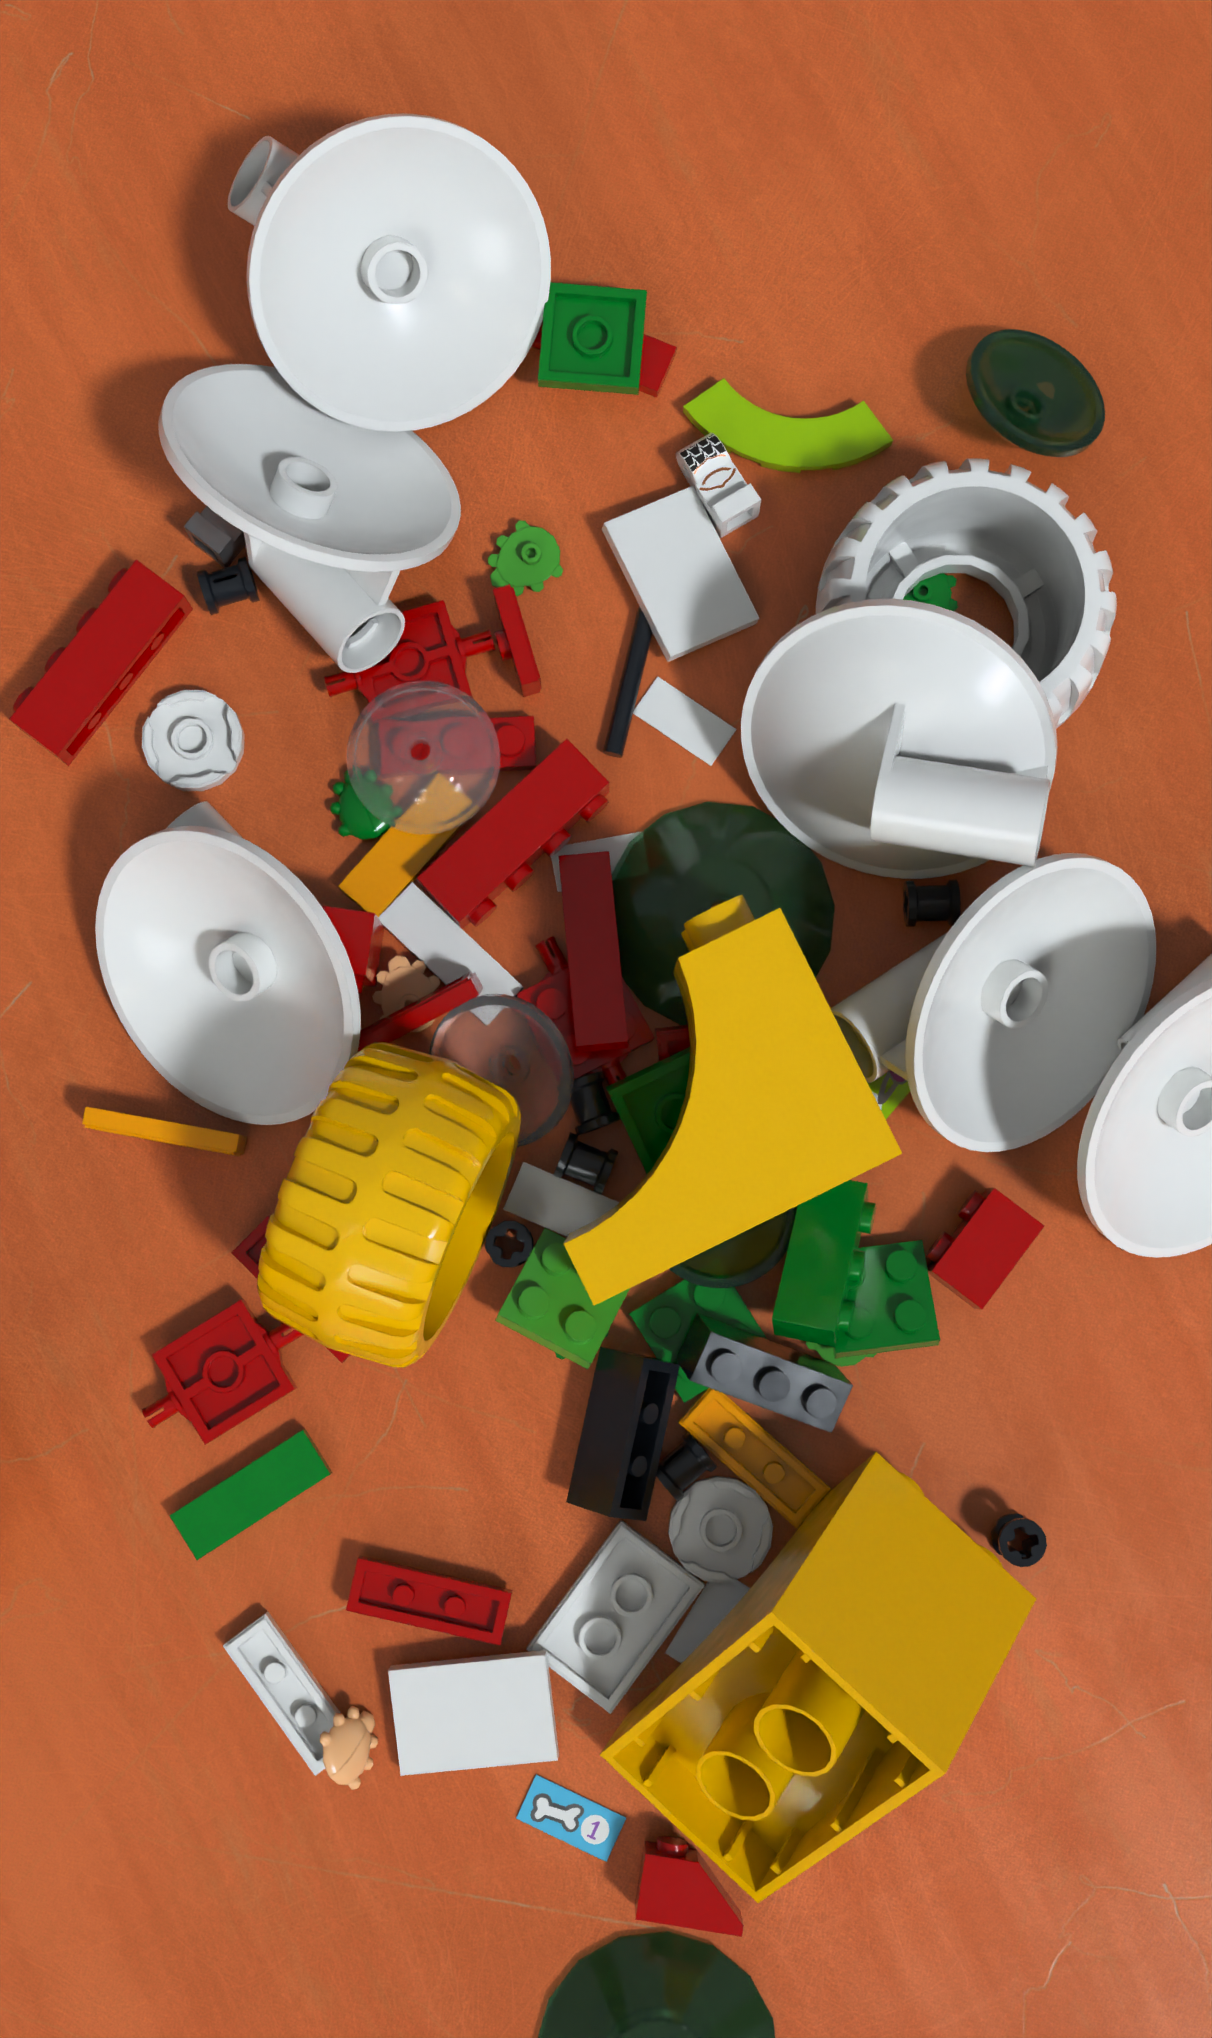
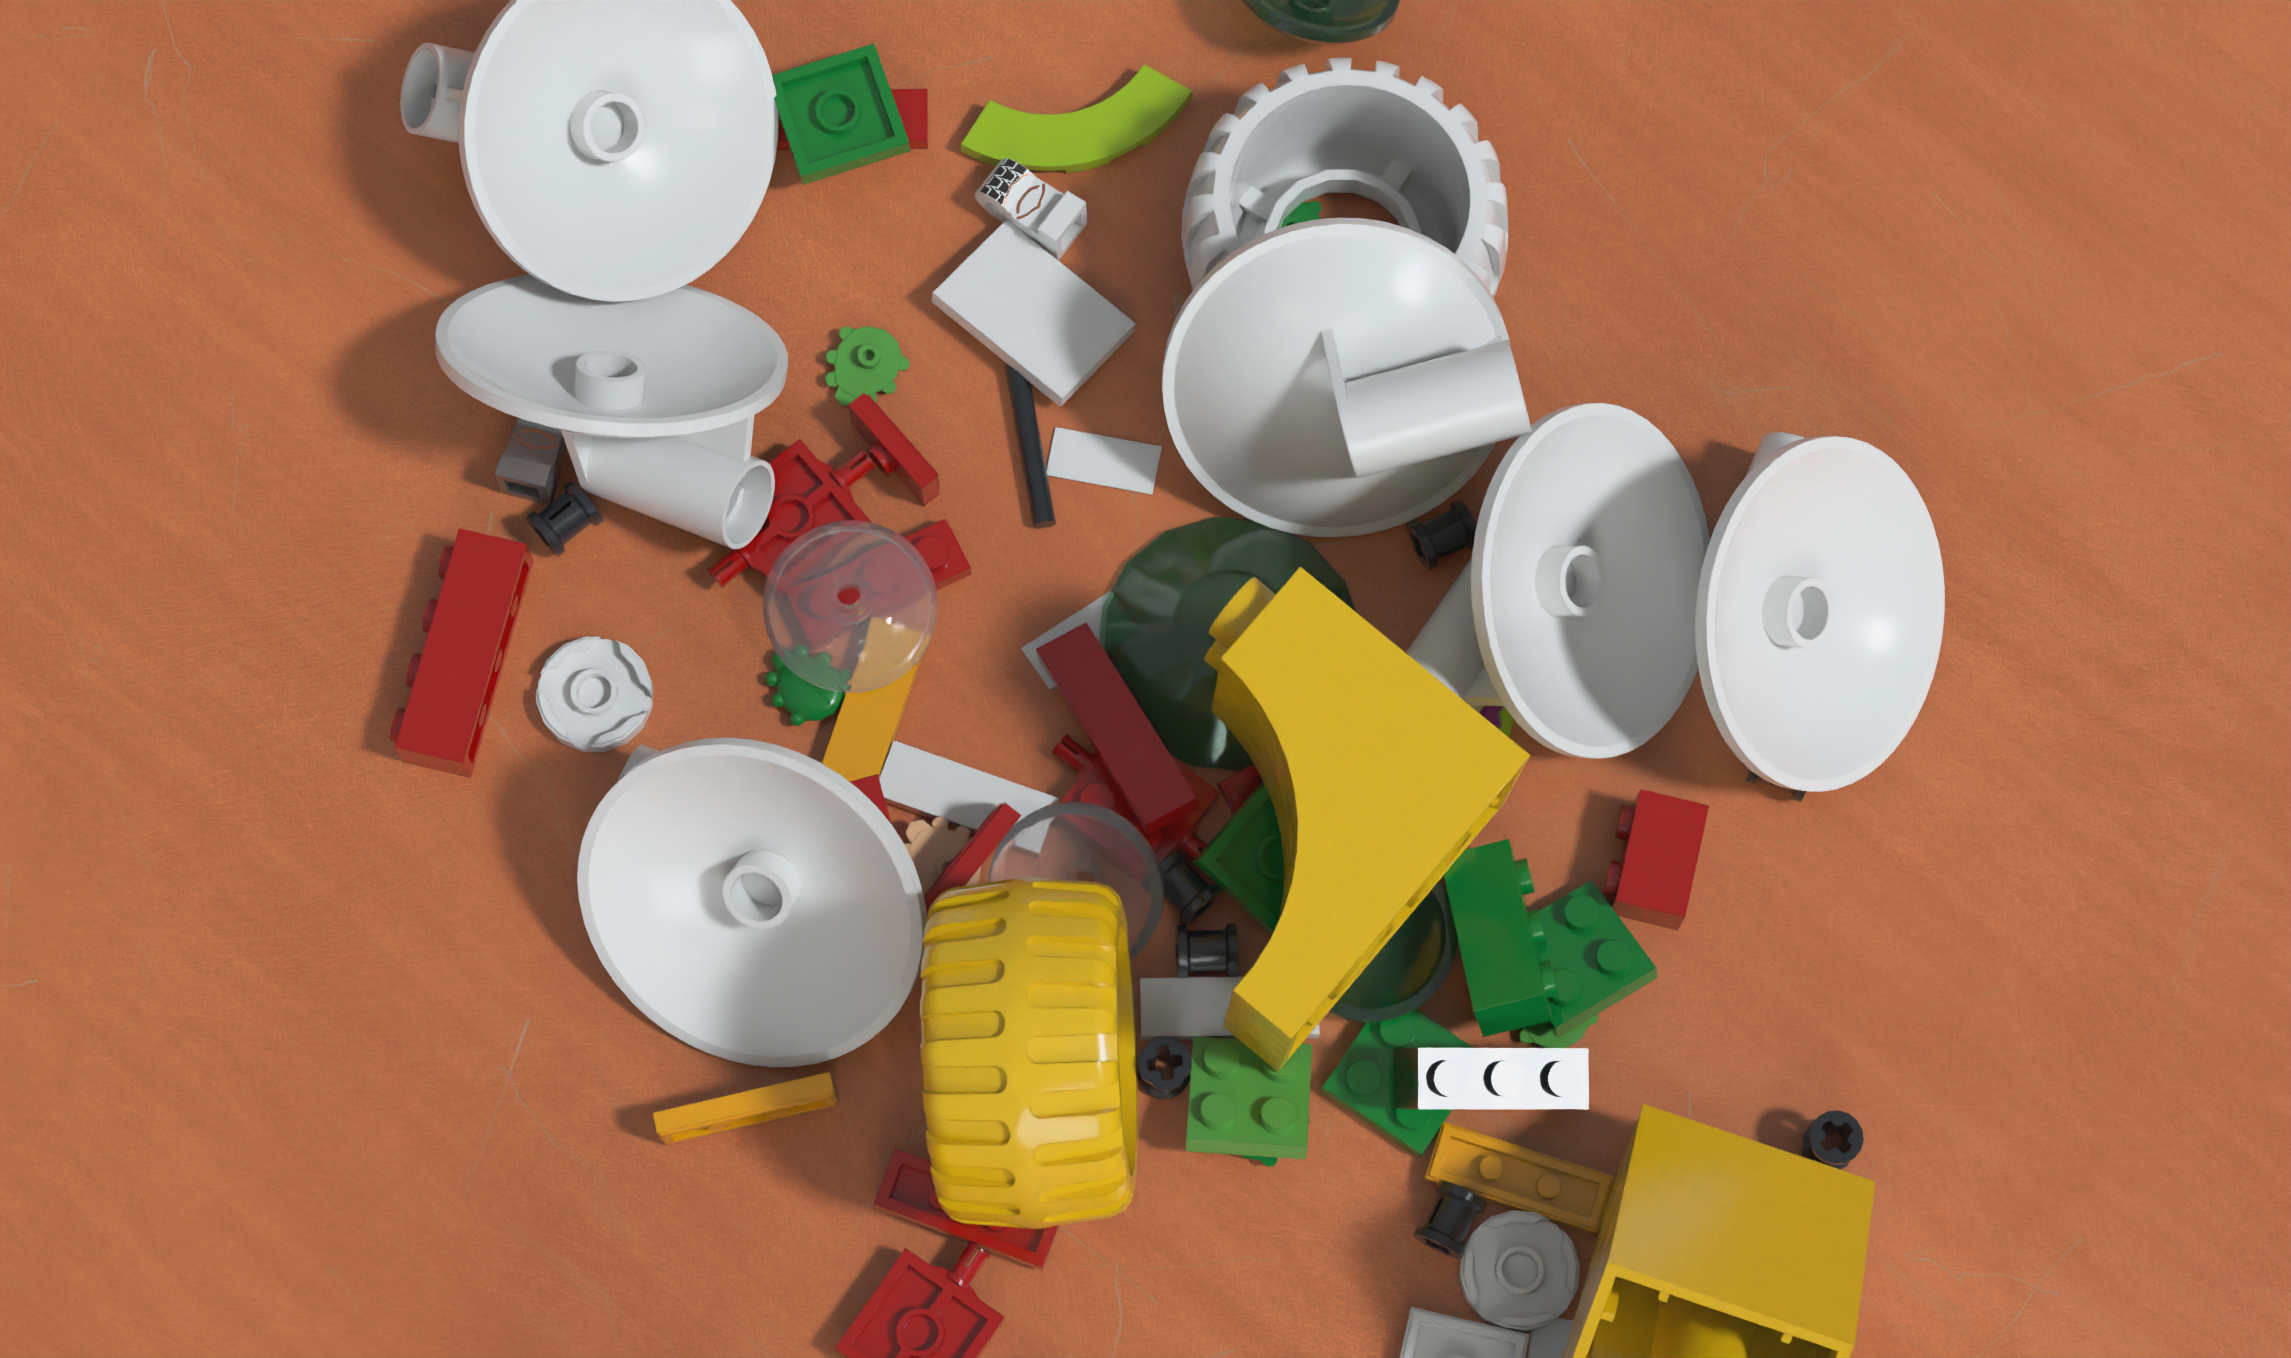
camera: 25 degrees left, 10 degrees down
(515, 834) = (981, 646): red brick -> none
(623, 1434) = (1372, 1209): black brick -> none

